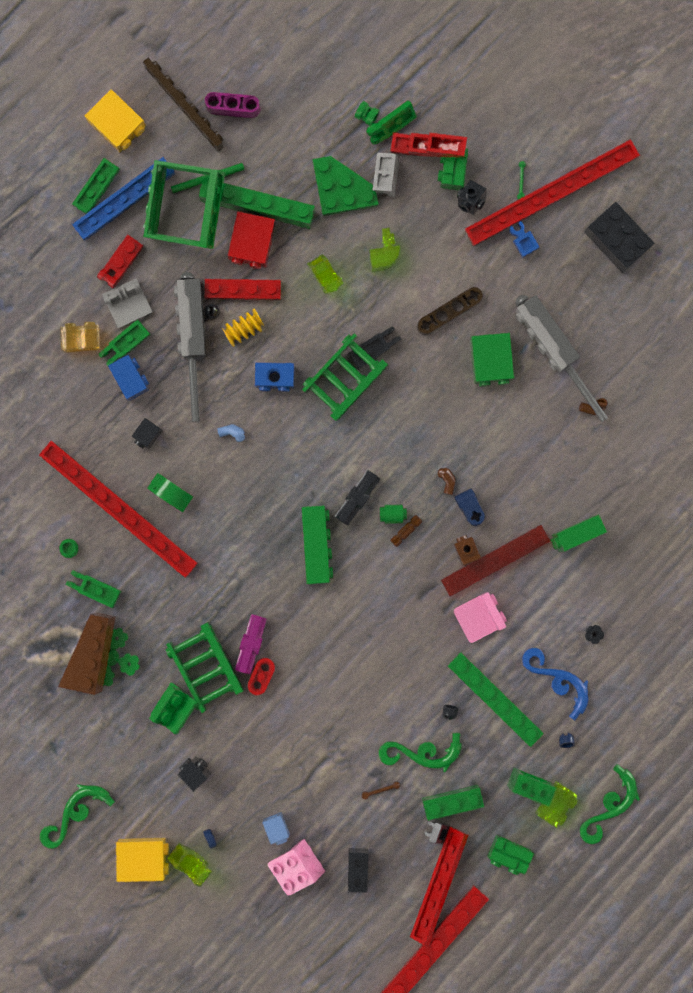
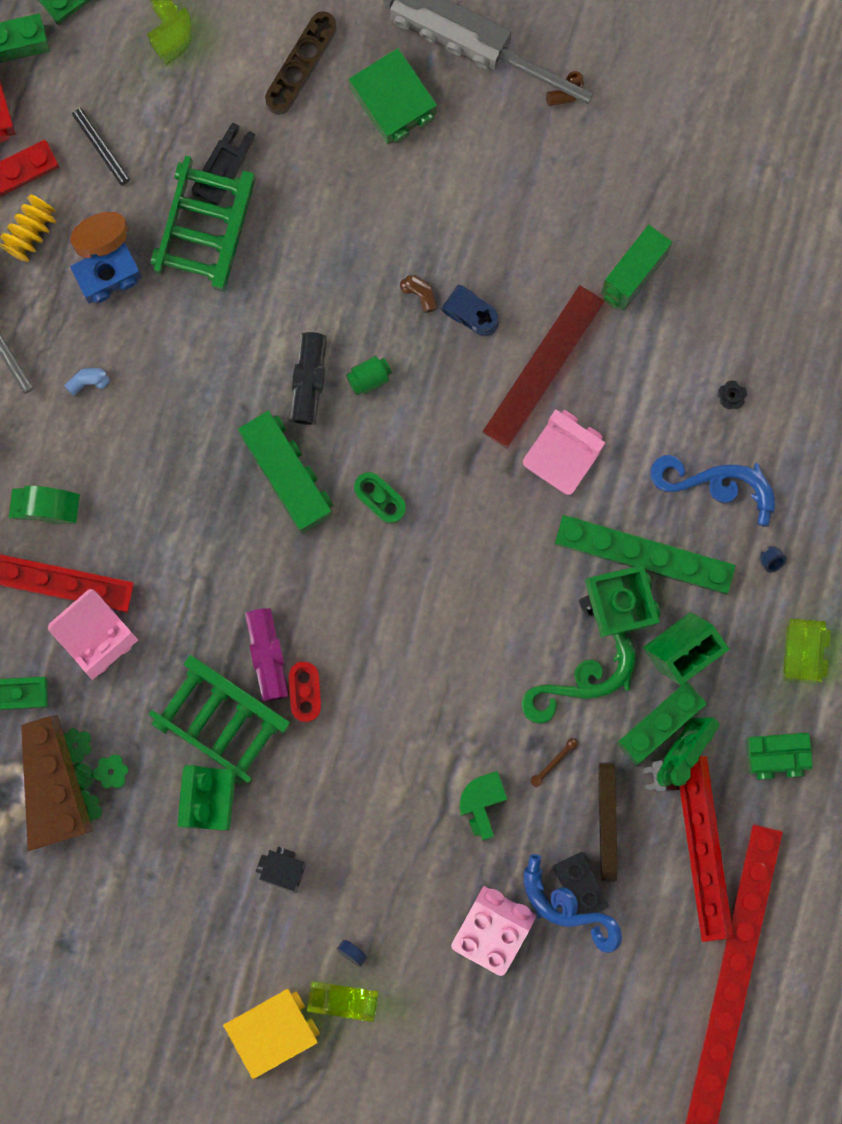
camera: 30 degrees left, 5 degrees down
(69, 812) = (140, 982): green plant -> none
(158, 581) = (92, 633): none -> bright pink bracket
(276, 828) = (437, 890): medium blue brick -> none
(282, 352) = (99, 234): none -> dark orange tile
(310, 300) = (100, 146): none -> black bar
(324, 274) = (102, 99): clear neon green brick -> none
(325, 788) = (478, 795): none -> green brick
(340, 885) = (565, 898): none -> blue plant
(362, 587) = (380, 498): none -> green plate
(392, 841) = (607, 821): none -> dark brown beam
(406, 530) = (399, 389): reddish brown axle -> none
(458, 827) = (686, 751): none -> green hinge
(464, 557) = (500, 381): reddish brown brick -> none
(468, 721) = (623, 601): none -> green plate
(489, 769) = (686, 648): none -> green brick
(529, 784) = (765, 639): green window -> none

